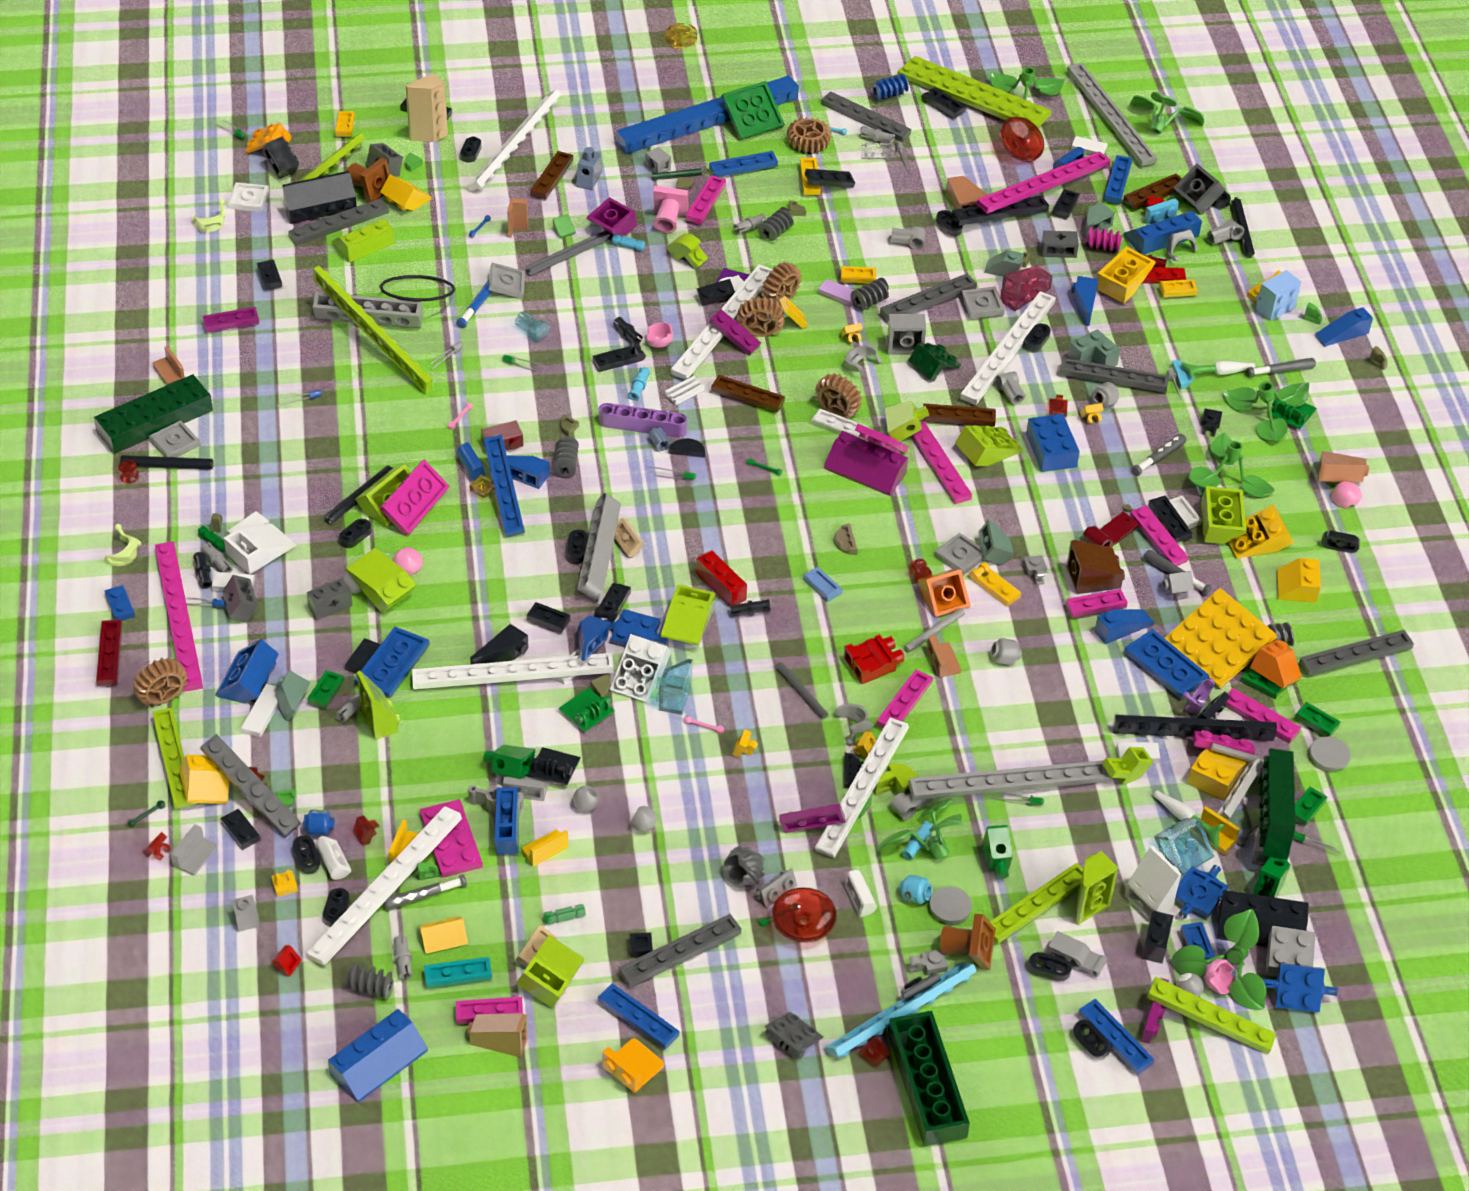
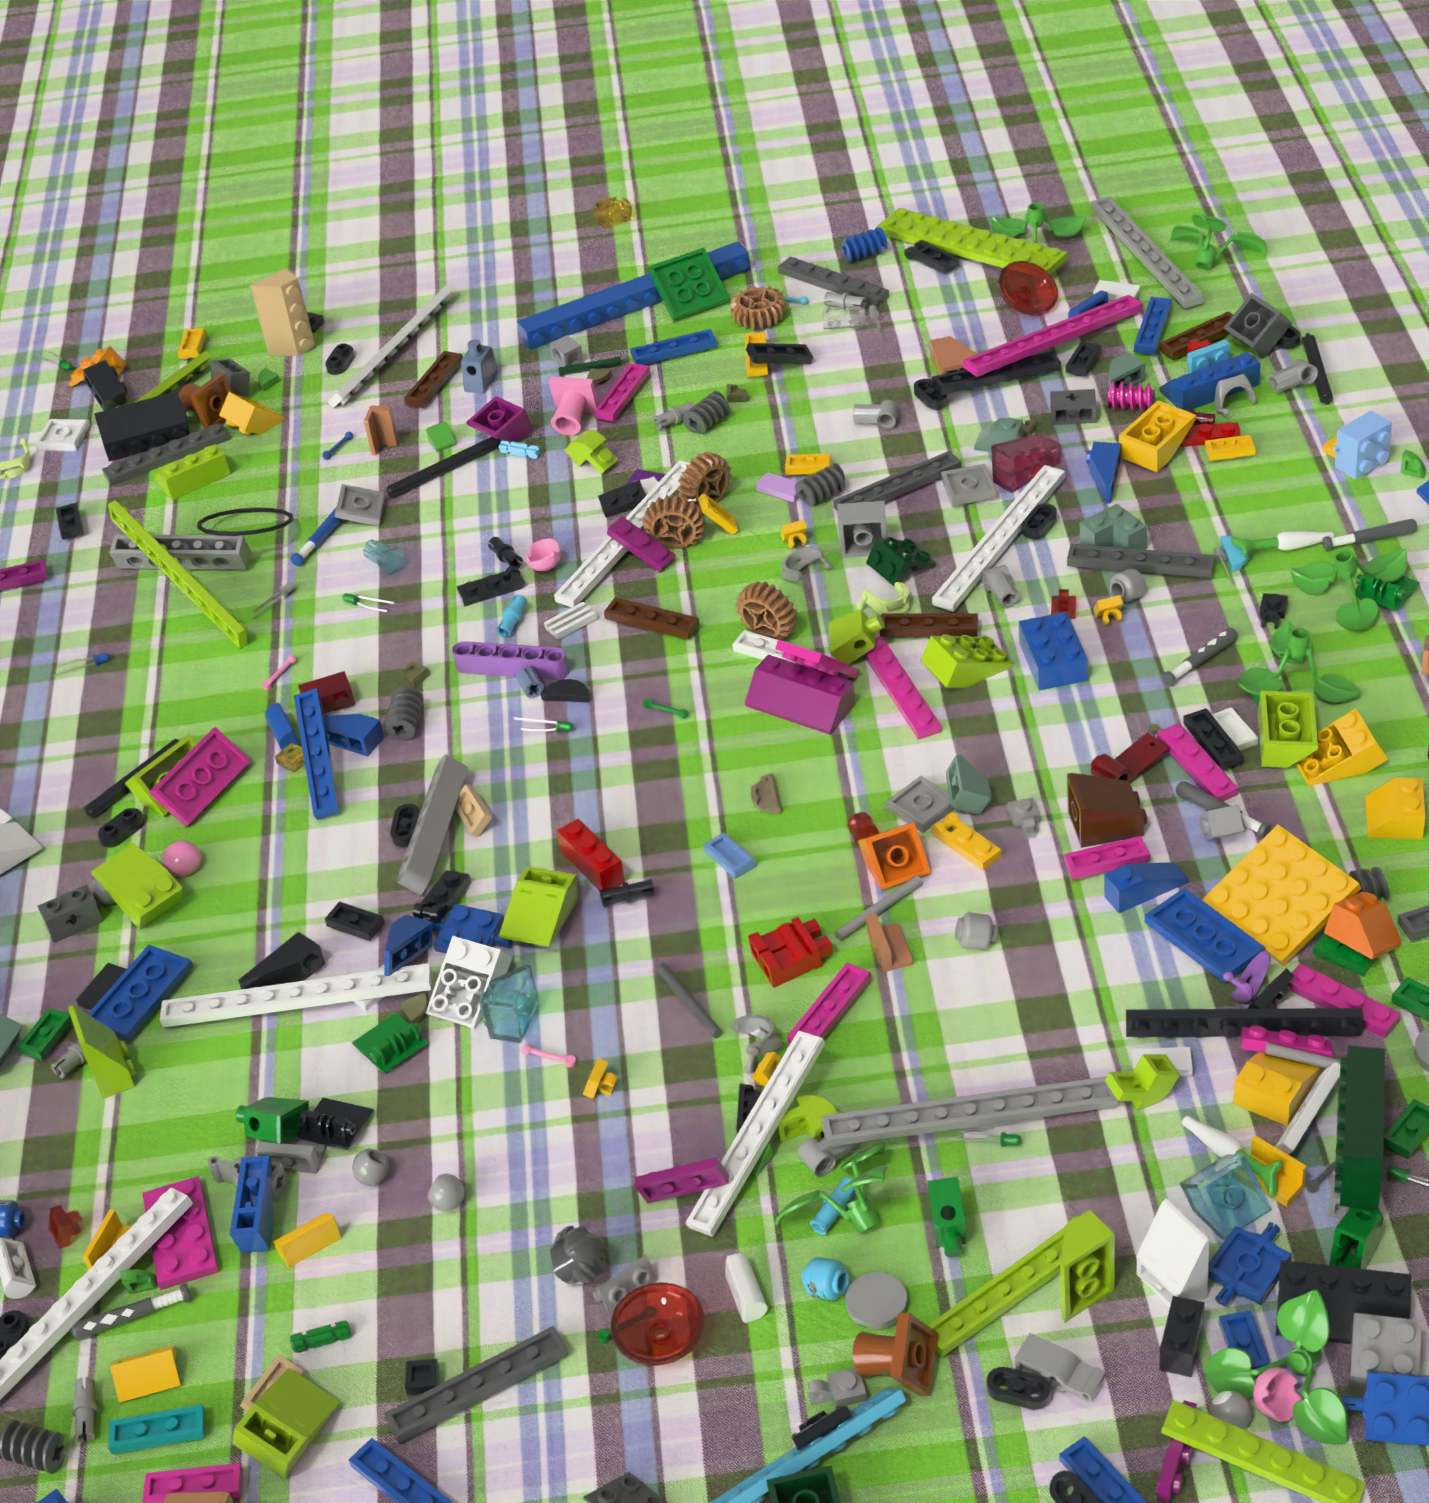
camera: 10 degrees right, 5 degrees down
(924, 397) = (881, 605): none -> yellowish green helmet

